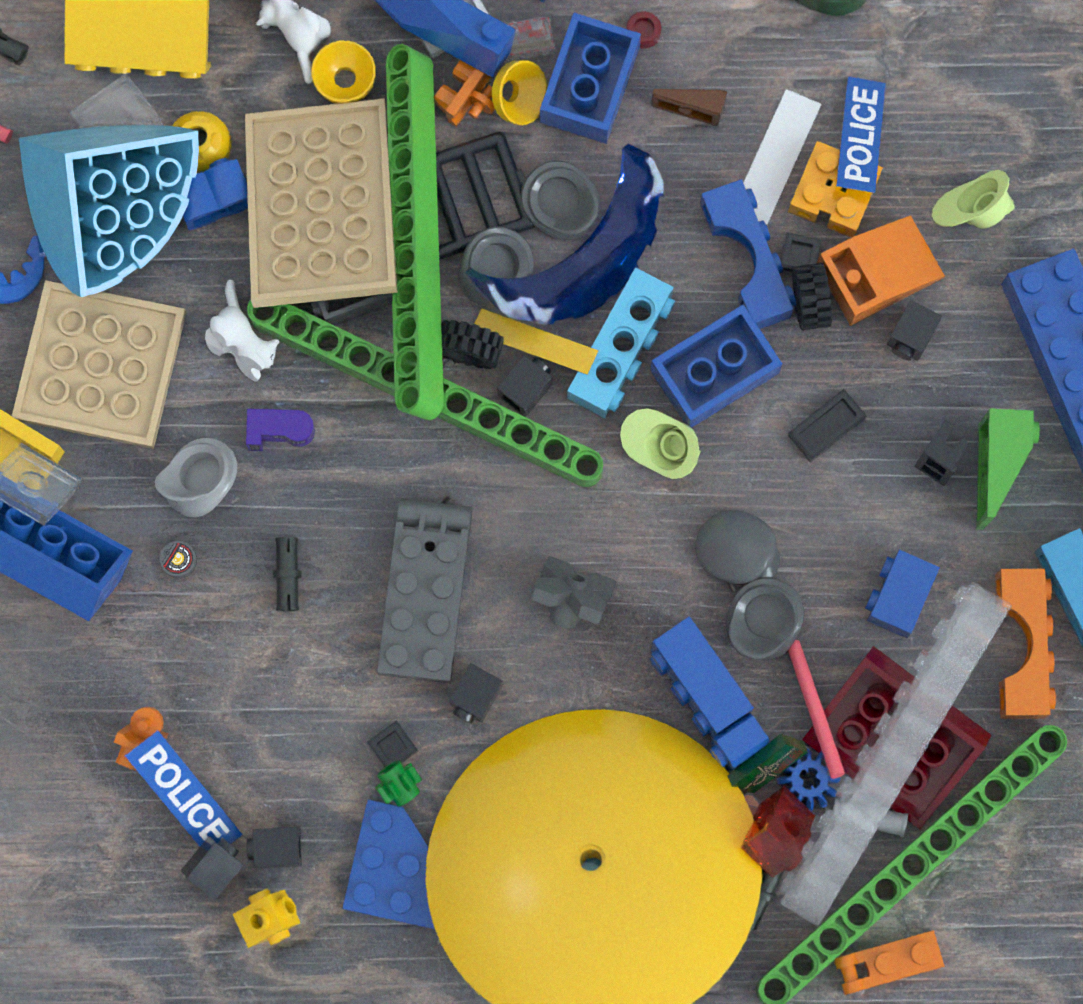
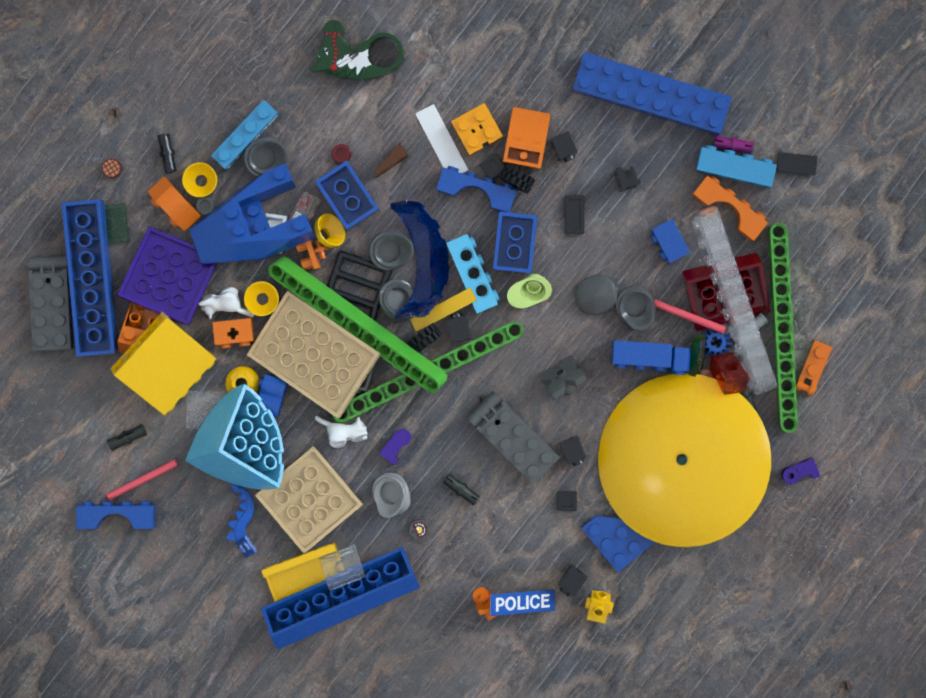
camera: 55 degrees left, 10 degrees up
(213, 866) = (560, 612): black brick -> none
(257, 54) = (223, 328): none -> orange brick
(398, 783) = (585, 510): green gear -> none
(861, 134) = (462, 99): blue sticker -> none
(977, 202) = (529, 75): yellowish green piece -> none
(1003, 447) = (647, 154): bright green slope -> none

